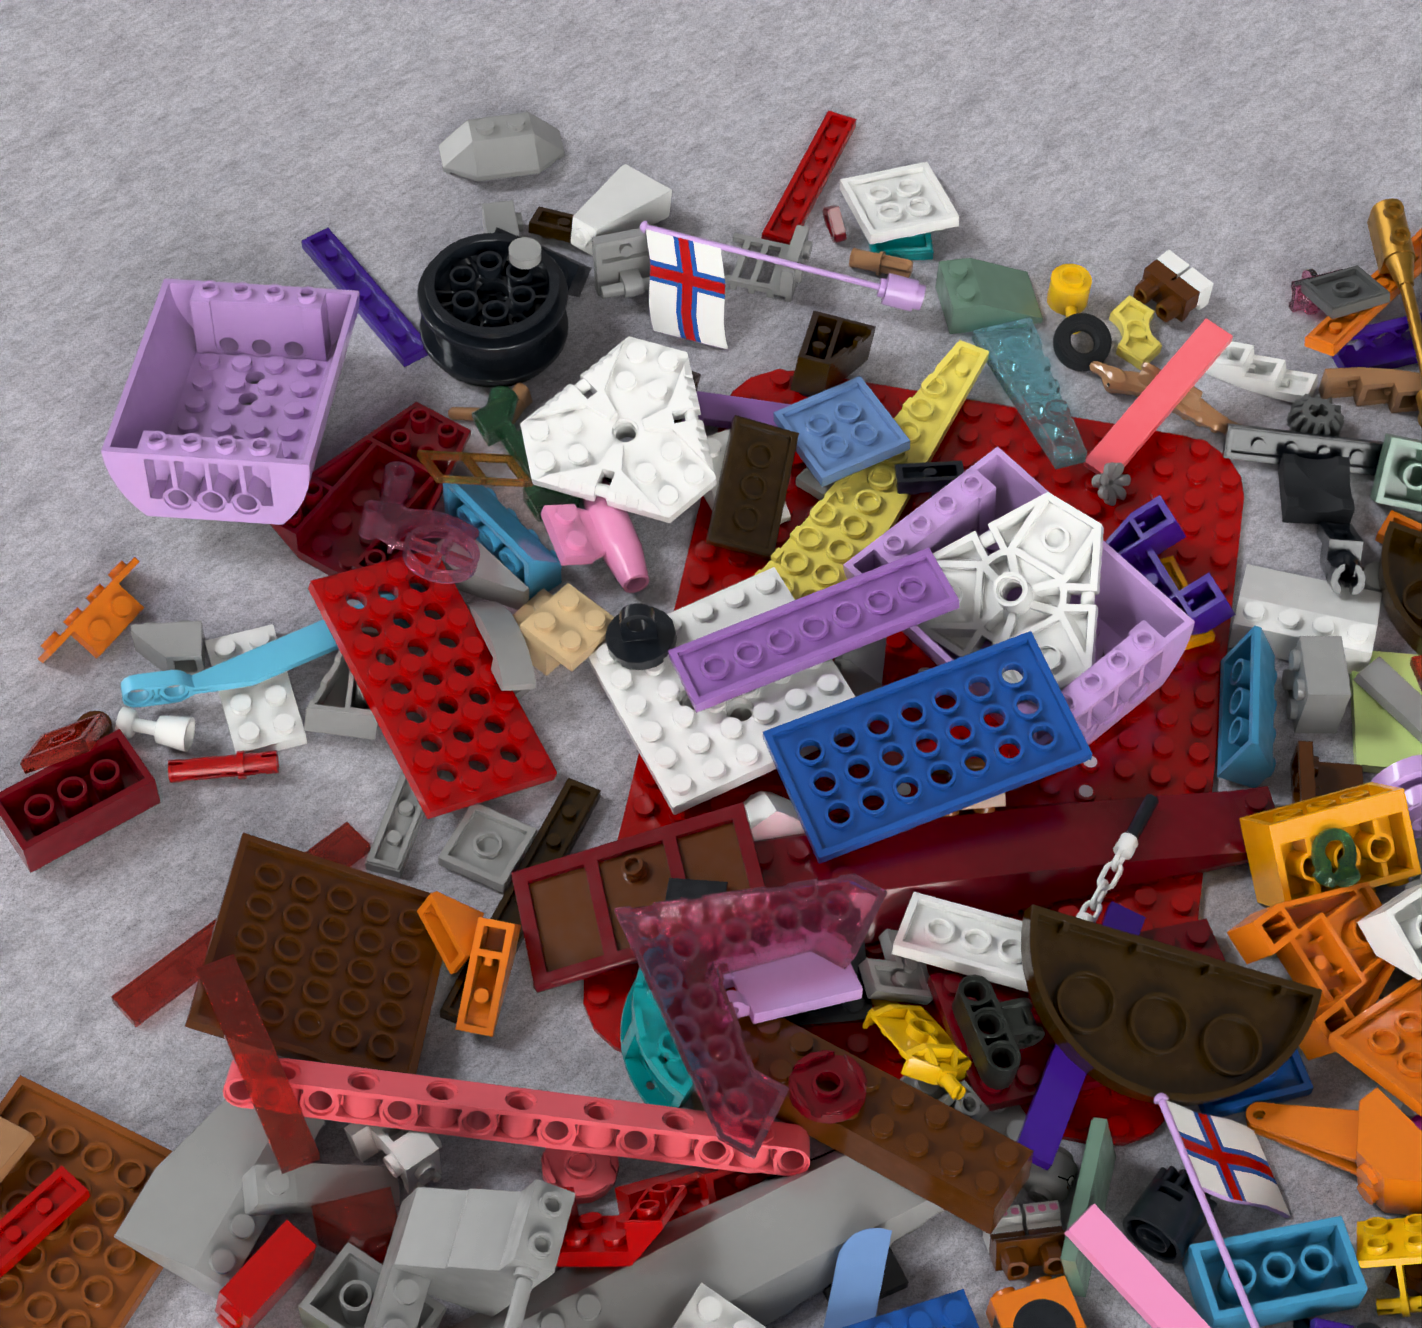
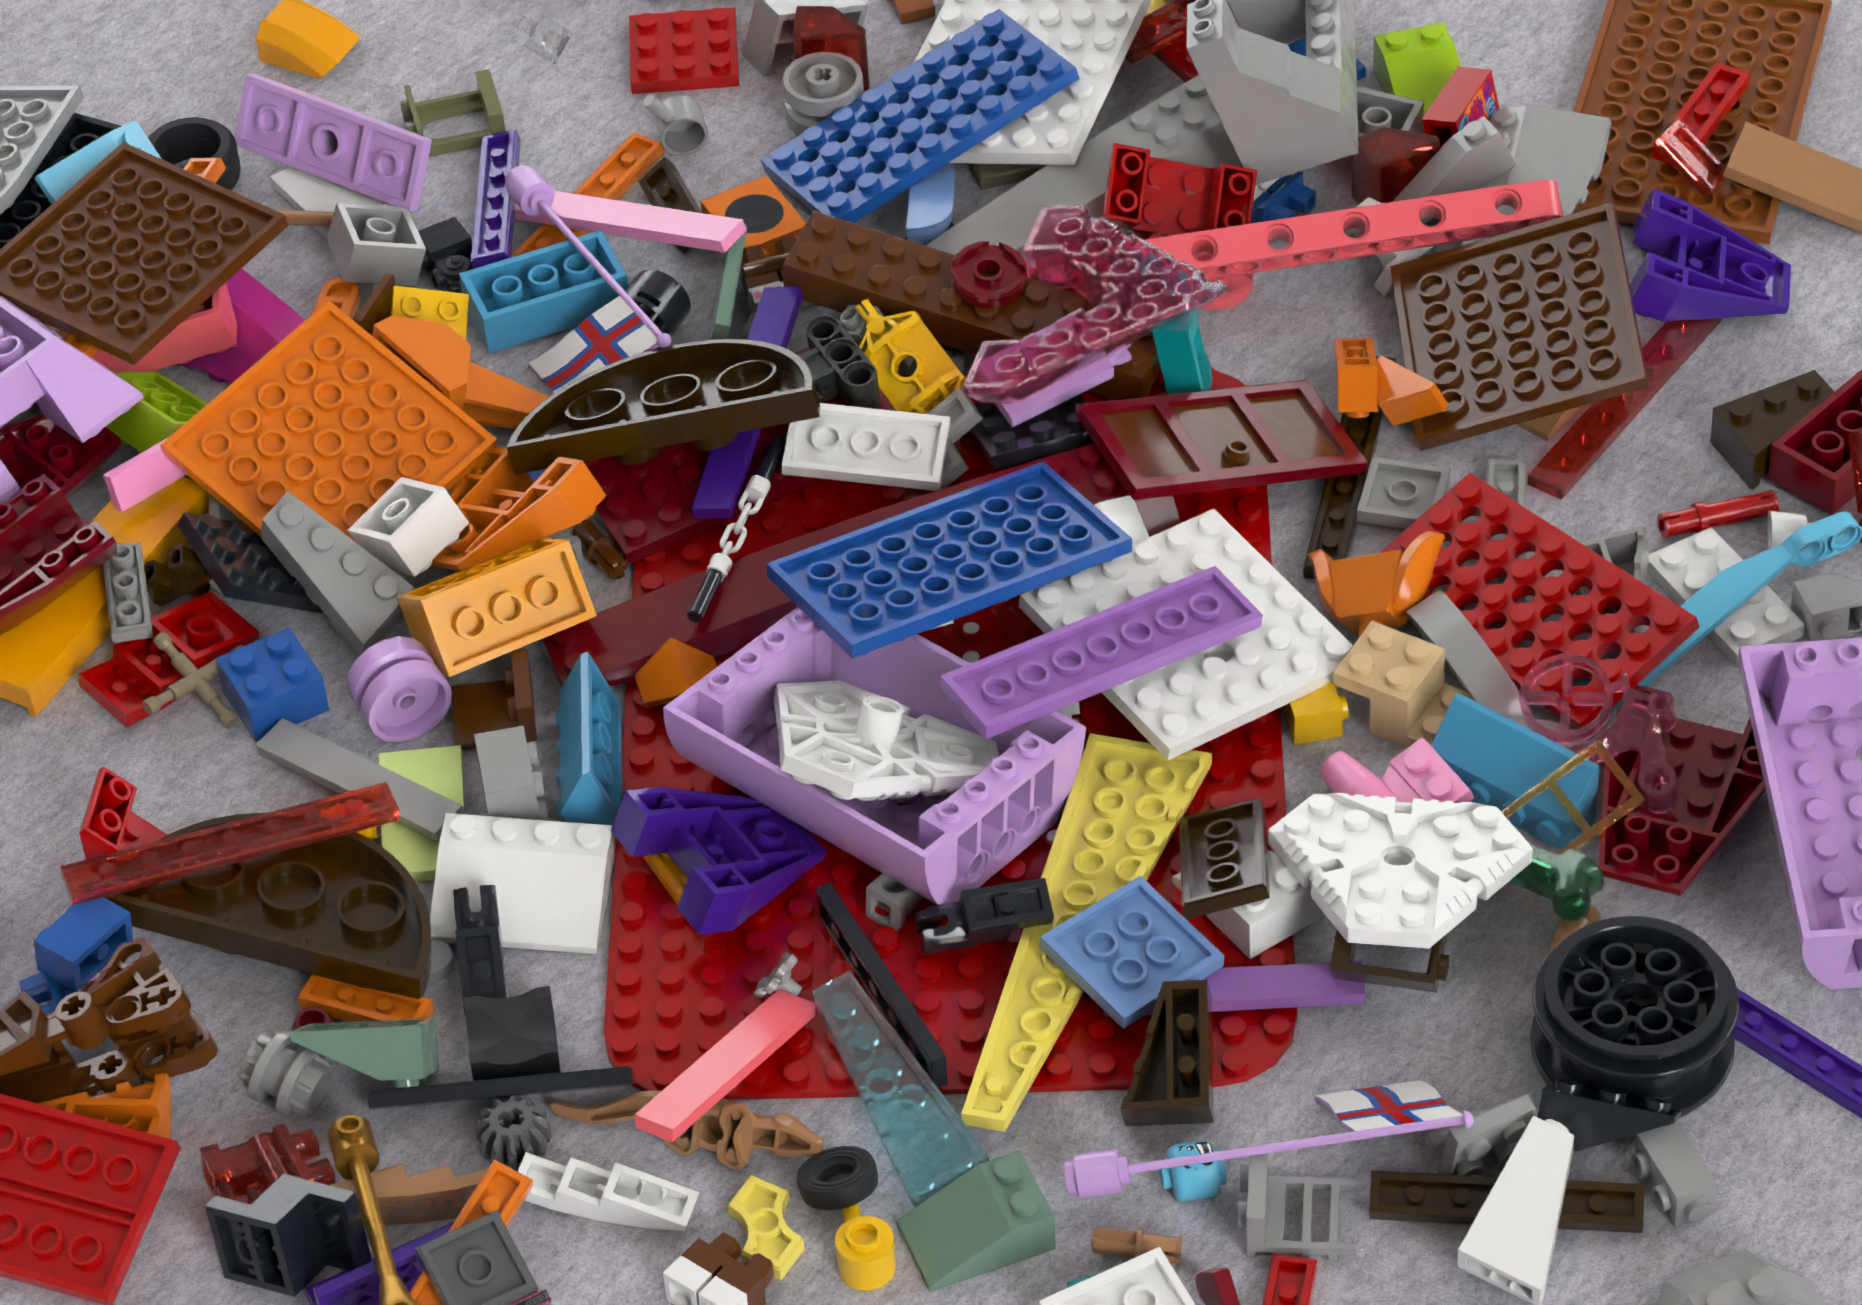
camera: 175 degrees right, 10 degrees down
(59, 1157) = (1690, 157): none -> clear red tile
(95, 1034) = (1706, 268): none -> dark purple wedge
(131, 839) = (1750, 424): none -> dark brown wedge
(258, 1064) = (1531, 185): clear red tile -> none
(524, 253) = (1608, 1020): light grey tile -> none
(555, 725) = (1376, 585): none -> orange torso
(640, 637) = (1301, 646): black tile -> none
(693, 889) = (1163, 425): black window -> none
(831, 298) = (1194, 1180): none -> medium azure head
(1022, 435) = (880, 983): none -> black tile
(1164, 766) = (672, 672): none -> orange slope
(1220, 928) = (600, 549): none -> reddish brown axle
(1347, 872) = (496, 550): clear green piece -> none

